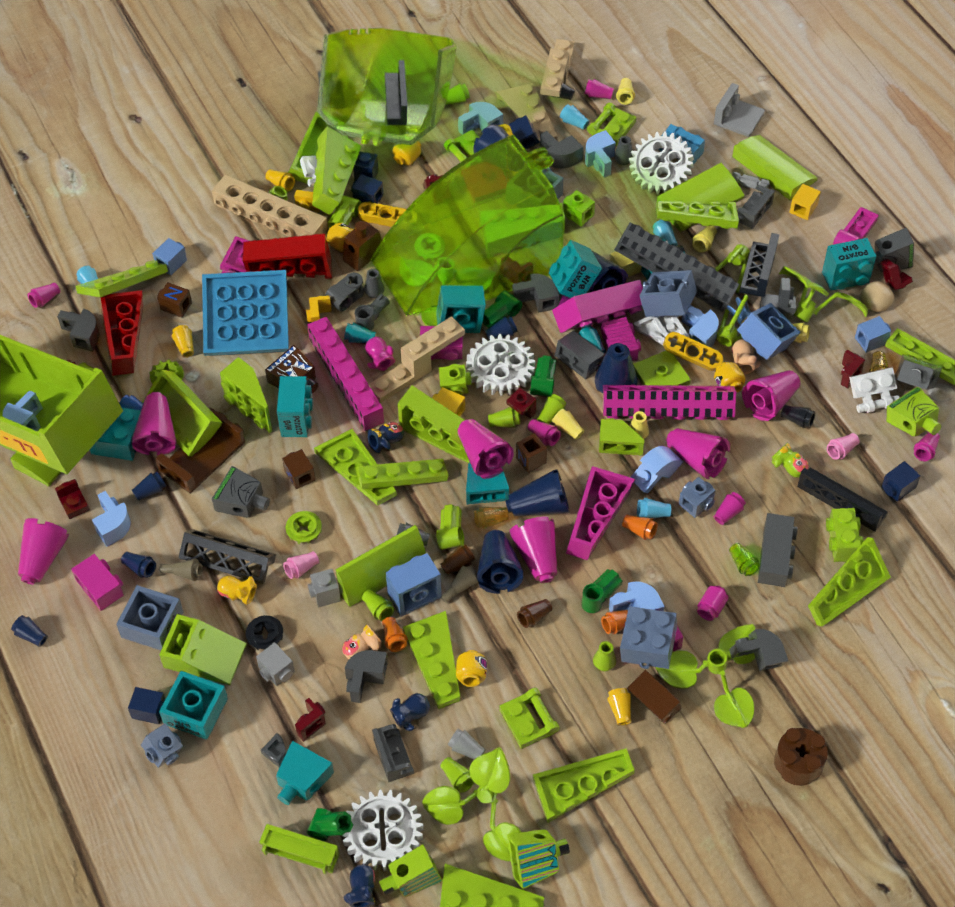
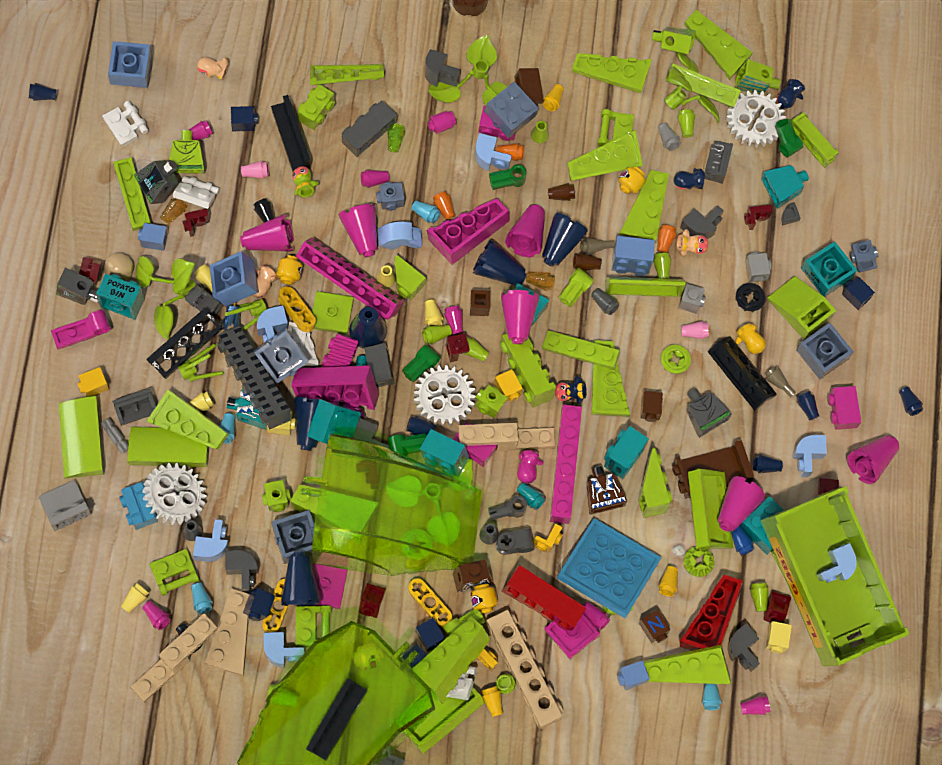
camera: 155 degrees left, 15 degrees up
(52, 346) = (778, 637): none -> light yellow brick
(465, 813) = (709, 87): none -> lime plate
(512, 677) = (607, 158): none -> lime wing

